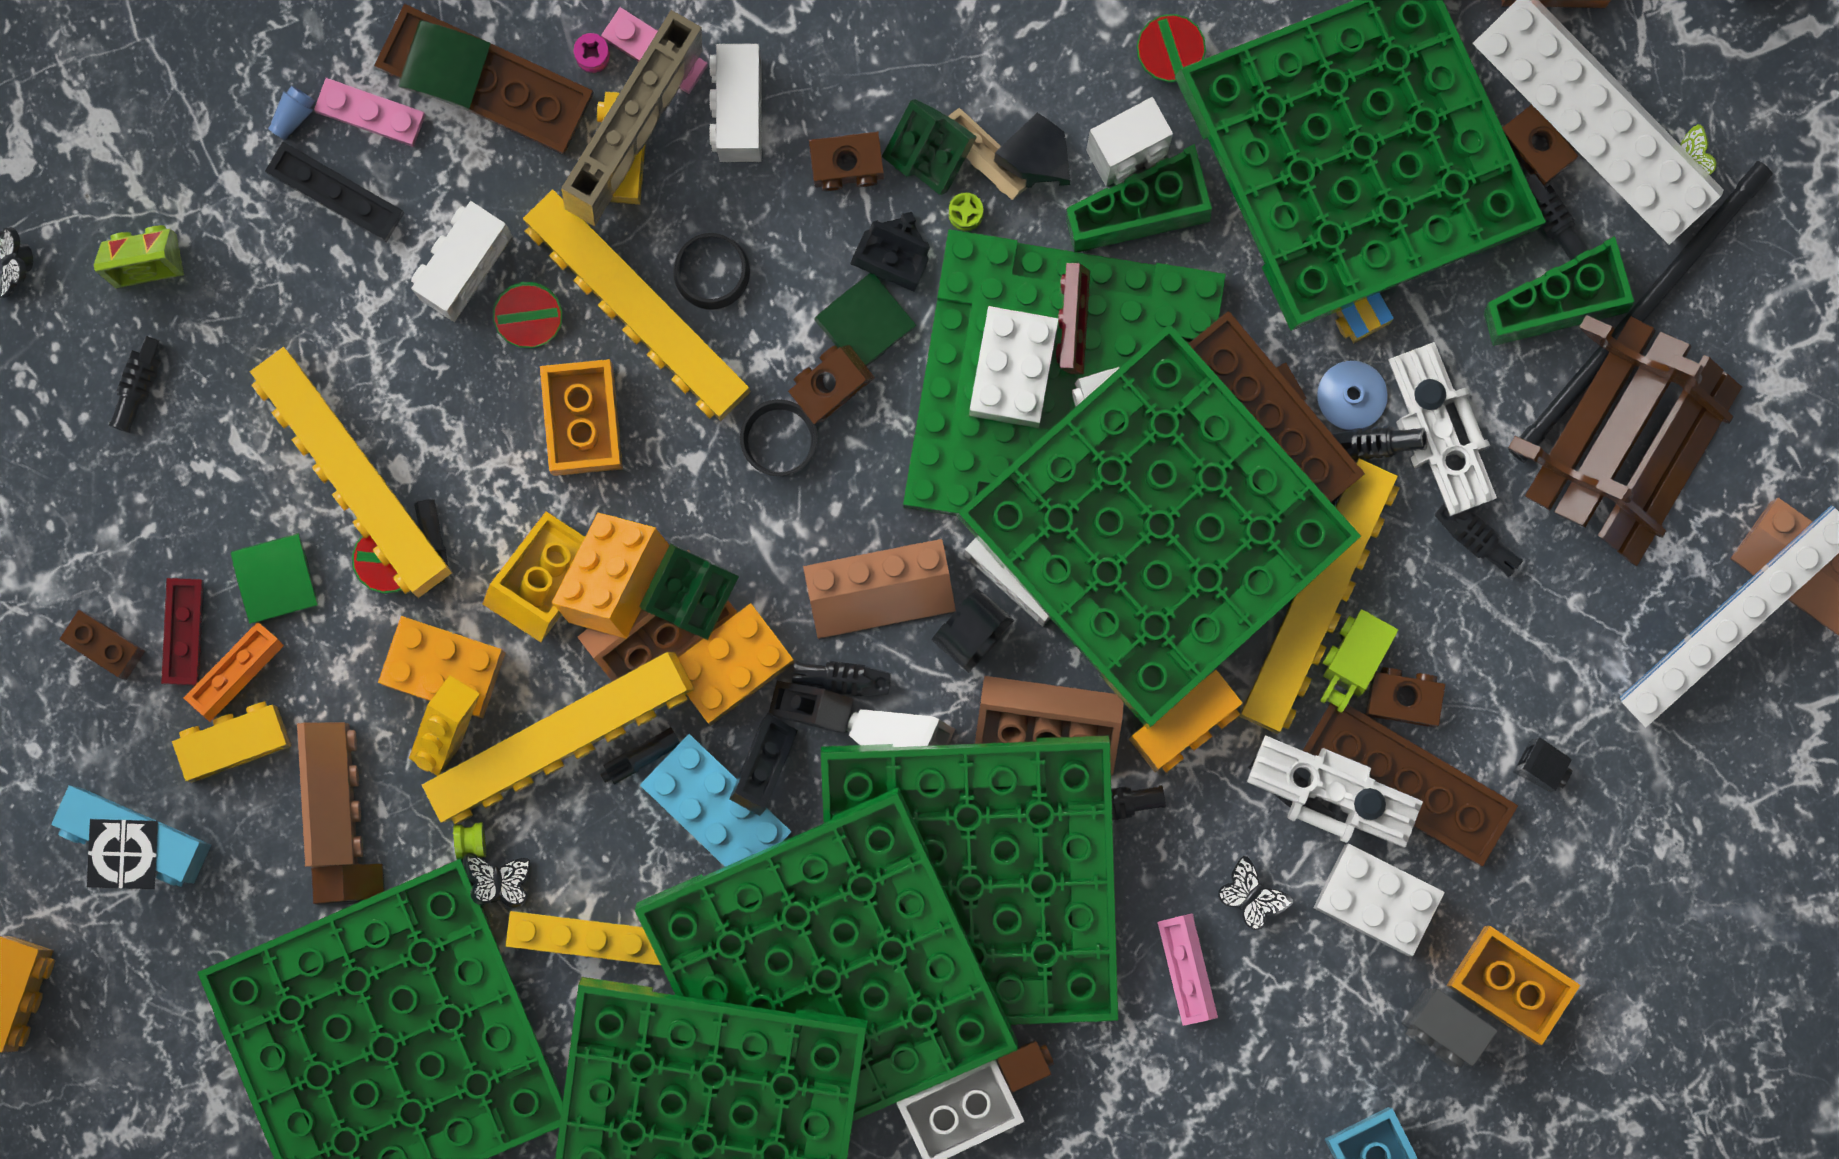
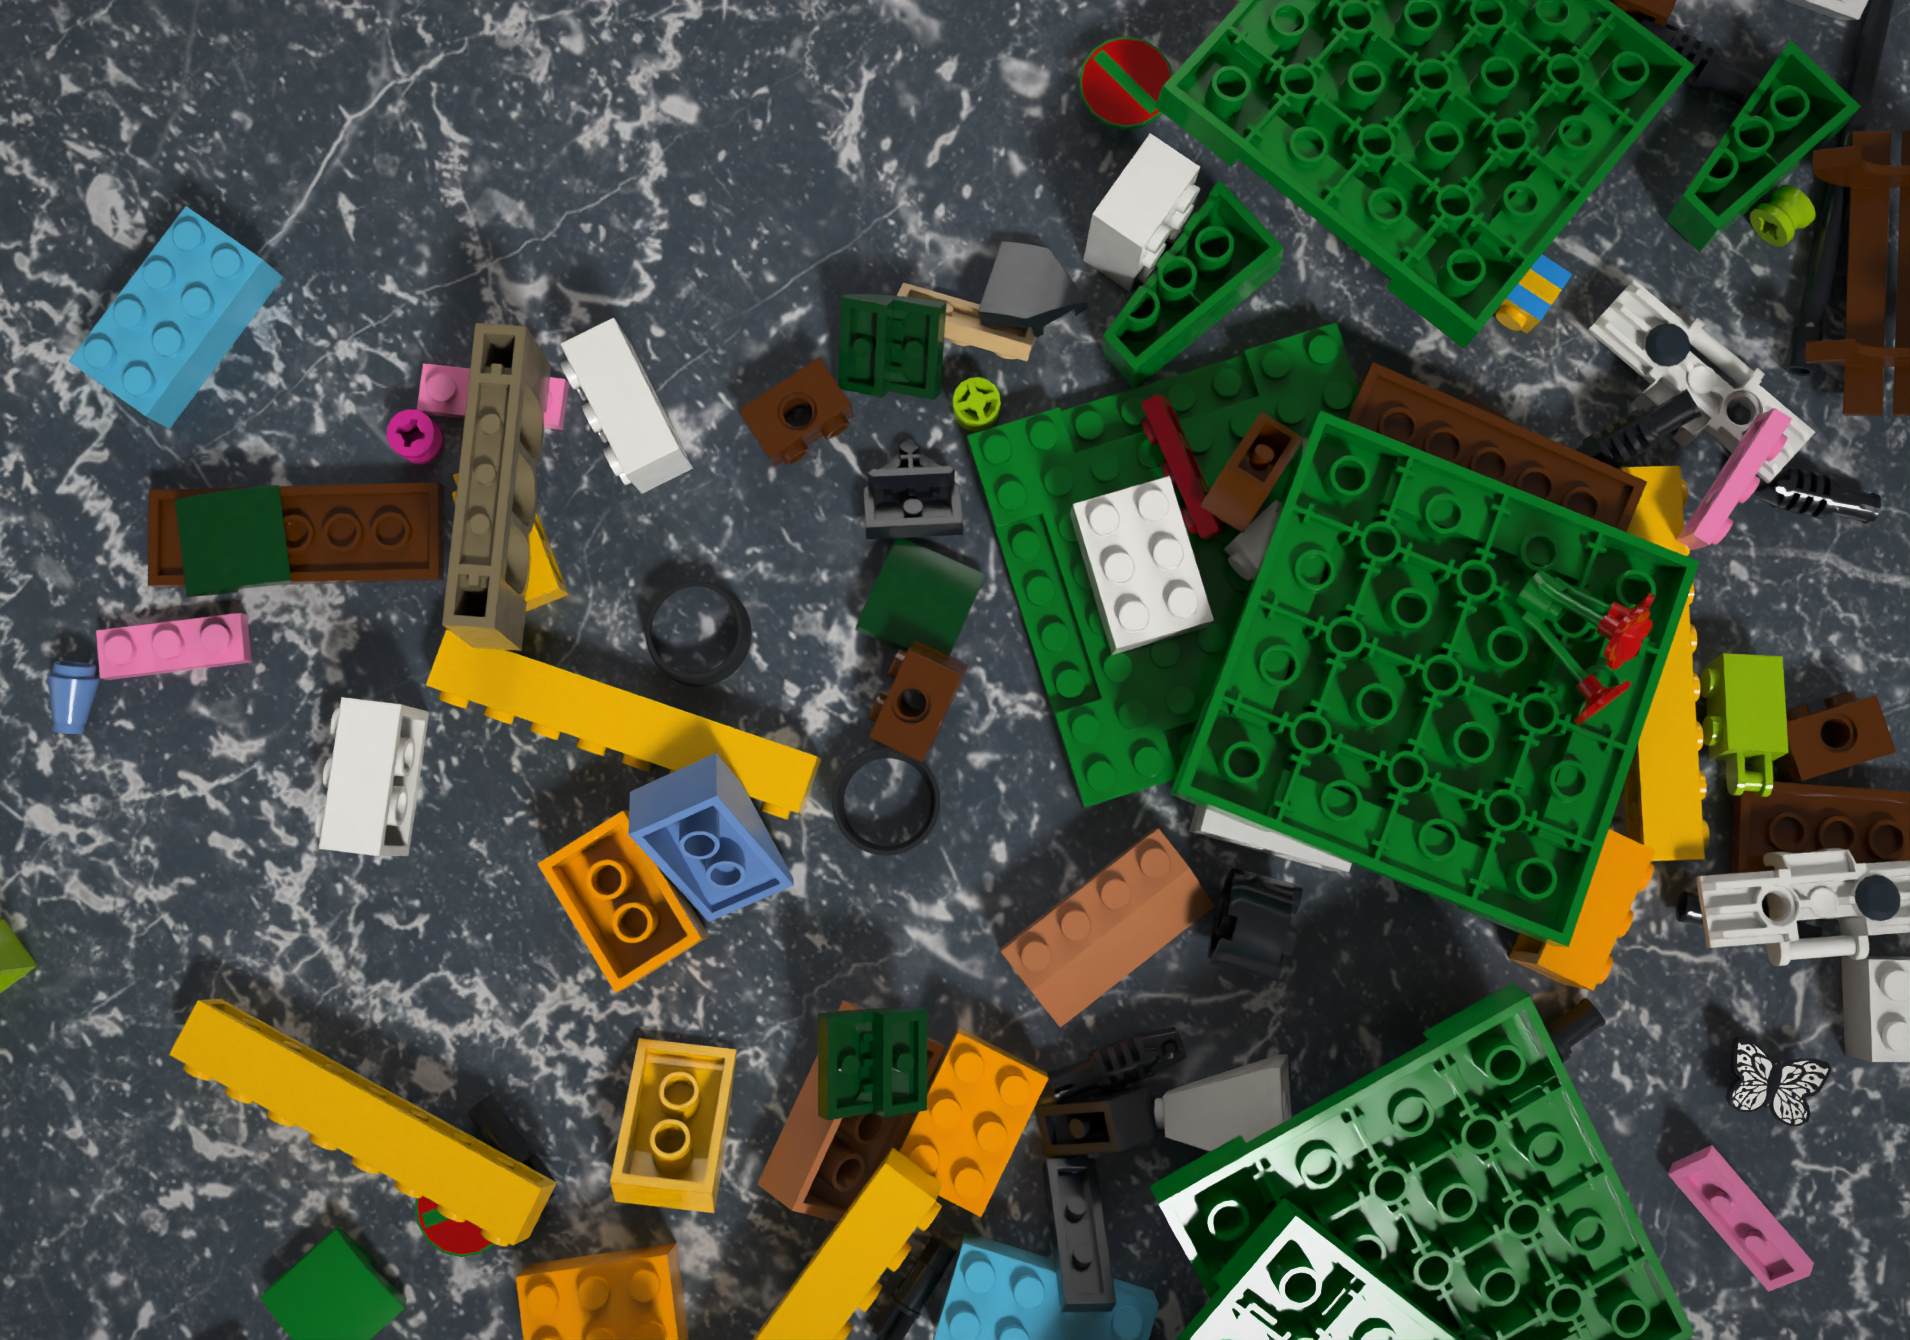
camera: 25 degrees left, 0 degrees up
(135, 384) = (36, 1137): black hinge -> none
(334, 191) = (174, 767): black plate -> none
(527, 315) = (493, 802): red piece -> none
(610, 575) = (761, 1088): light orange brick -> none
(654, 404) = (707, 838): none -> medium blue slope
(1031, 710) = (1393, 992): nougat slope -> none
(1111, 341) = (1251, 472): none -> reddish brown brick
(1268, 550) = (1624, 627): none -> plant
(1342, 410) = (1539, 405): light blue dish -> none
(1421, 502) = (1736, 480): none -> bright pink plate
(1557, 348) = (1785, 213): none -> lime wheel

